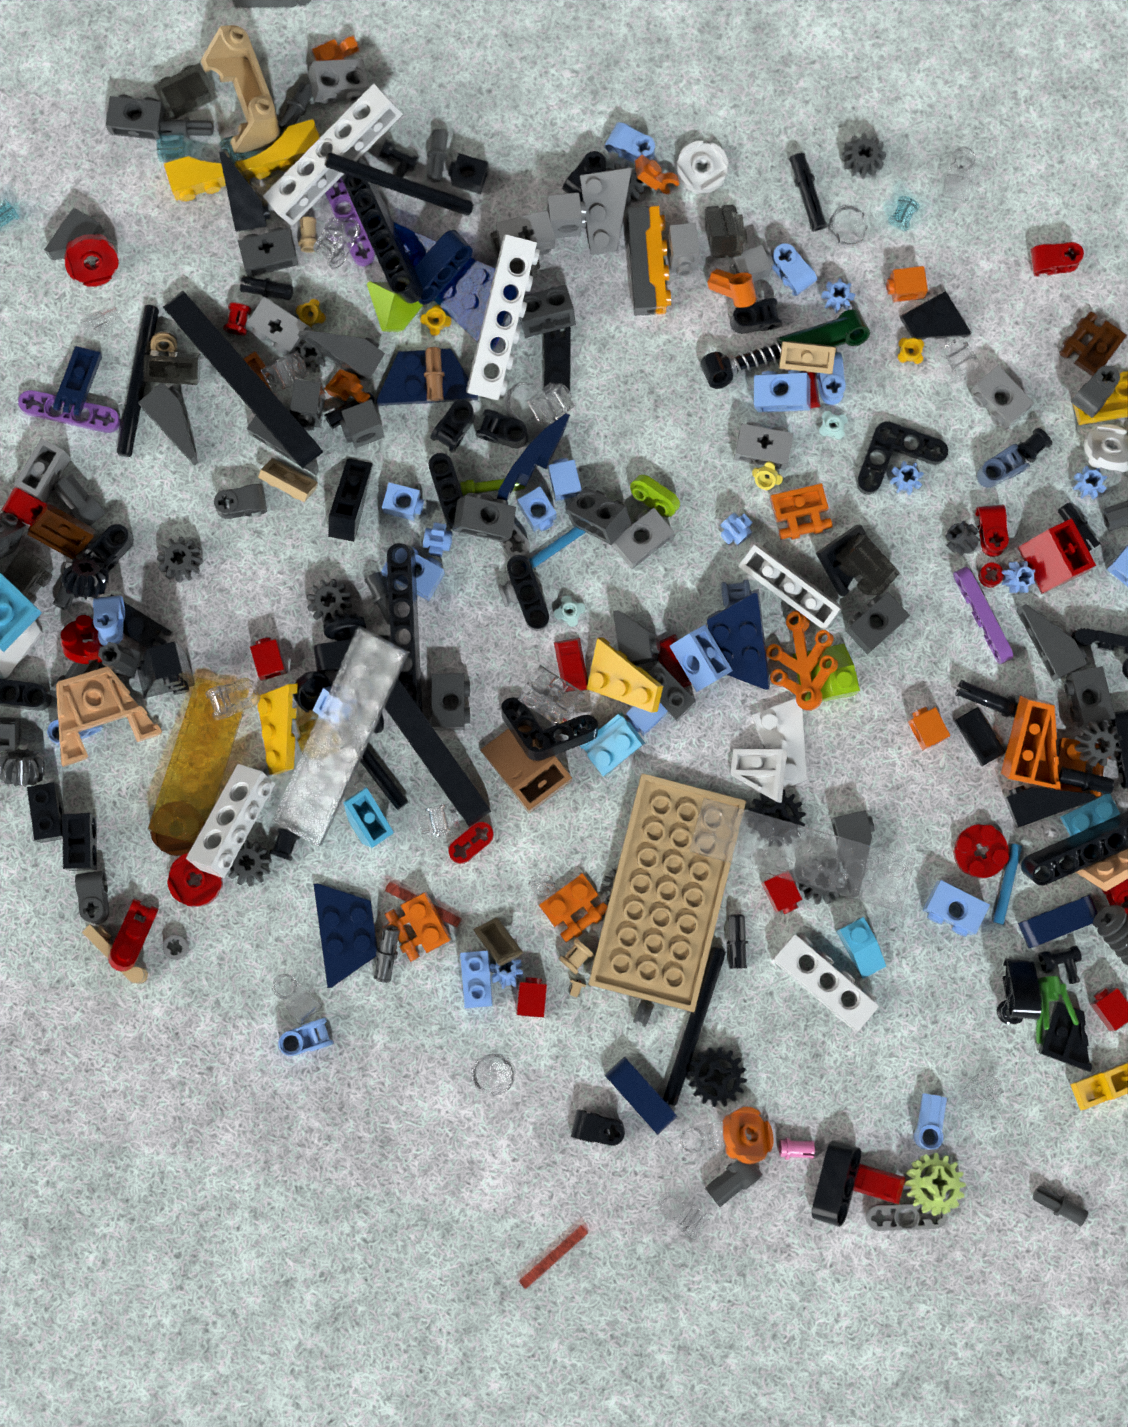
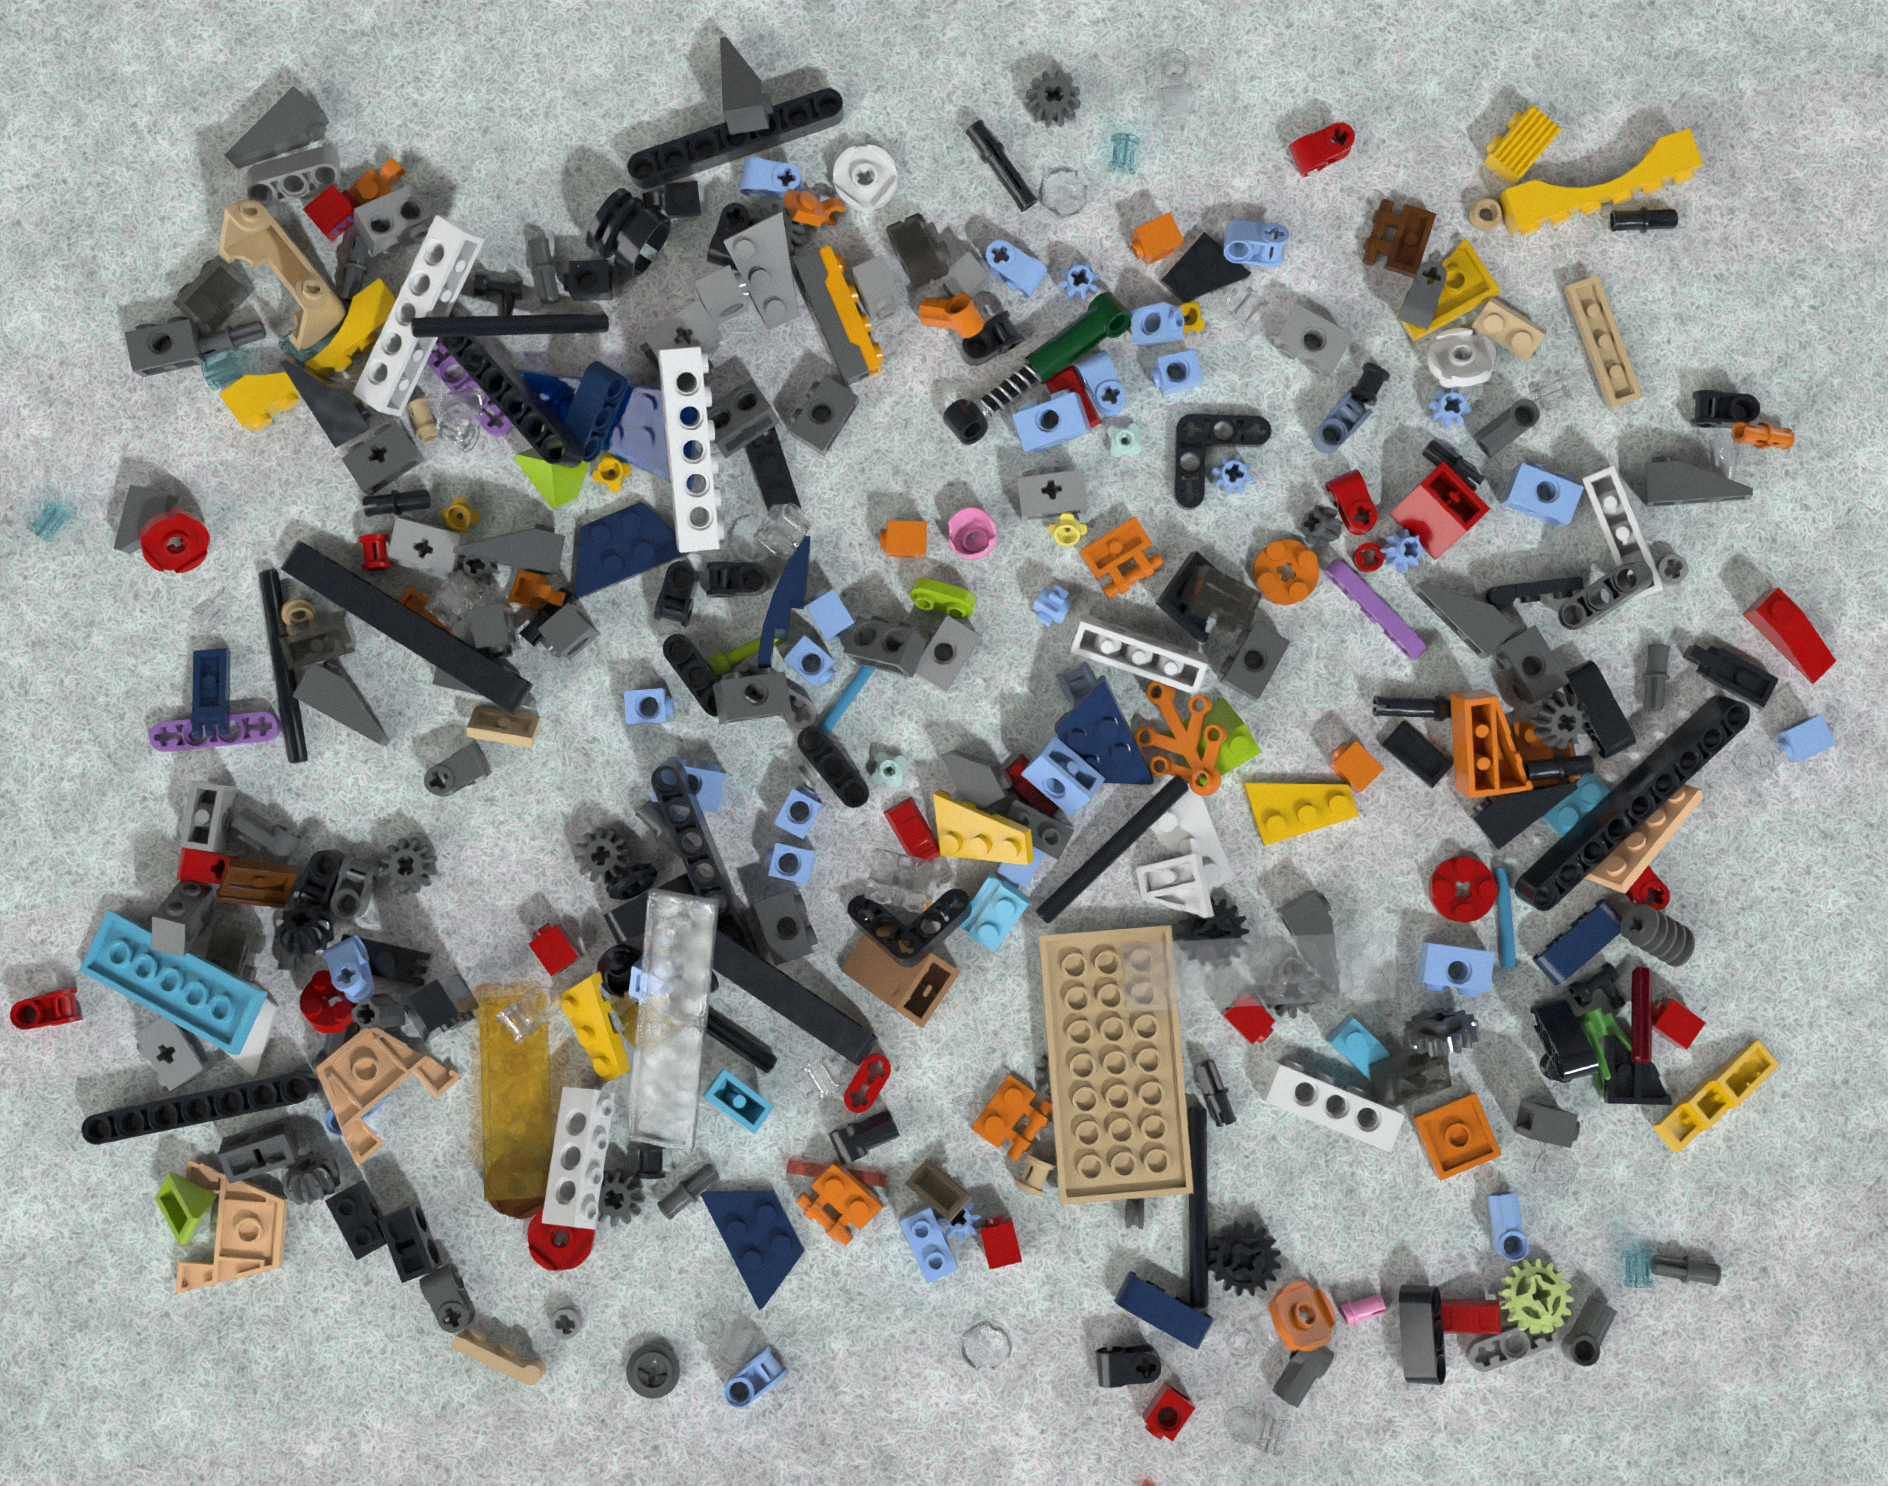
camera: 15 degrees left, 5 degrees up
(131, 936) = (510, 1331): red plate -> none
(134, 560) = (355, 884): none -> dark grey piece
(226, 994) = (640, 1380): none -> dark grey gear
(285, 19) = (302, 164): none -> light grey beam
(294, 60) = (332, 211): none -> red brick
(305, 878) = (688, 1191): none -> dark grey axle
(349, 500) = (584, 725): black slope -> none
(386, 953) = (814, 1248): dark grey pin -> none
(434, 374) = (632, 542): medium nougat axle -> none
(437, 539) = (705, 738): light blue gear -> none
(450, 882) = (859, 1138): none -> black piece
(476, 665) = (805, 863): none -> light blue brick
(489, 631) = (785, 818): none -> light blue brick
(508, 143) = (623, 230): none -> black wheel
(556, 138) = (680, 200): none -> black plate
(576, 987) = (1047, 1208): tan piece -> none
(605, 344) = (826, 395): none -> dark grey brick
(622, 1164) = (1167, 1397): none -> red brick
(625, 99) = (723, 151): none -> black beam
(632, 72) = (743, 95): none -> dark grey slope
(640, 442) = (904, 539): none -> orange brick
(693, 446) = (973, 521): none -> bright pink hair
(720, 728) = (1112, 849): none -> black axle
(807, 357) = (1068, 372): tan plate -> none
(872, 746) = (1295, 809): none -> yellow wing
(886, 346) = (1146, 324): none -> light blue brick
(893, 976) = (1409, 1076): none -> clear smoke brick
(898, 380) = (1187, 362): none -> light blue brick
(914, 1039) = (1457, 1136): none -> orange plate
(926, 579) = (1269, 581): none -> orange plate
(928, 951) = (1441, 1032): none -> dark grey gear
(970, 1224) = (1589, 1327): none -> dark grey piece
(982, 311) = (1252, 243): none -> light blue piece
(988, 1050) = (1547, 1123): none -> dark grey brick
(1022, 1190) = (1637, 1268): none -> clear light blue bush
(1089, 993) = (1641, 1015): none -> dark red axle

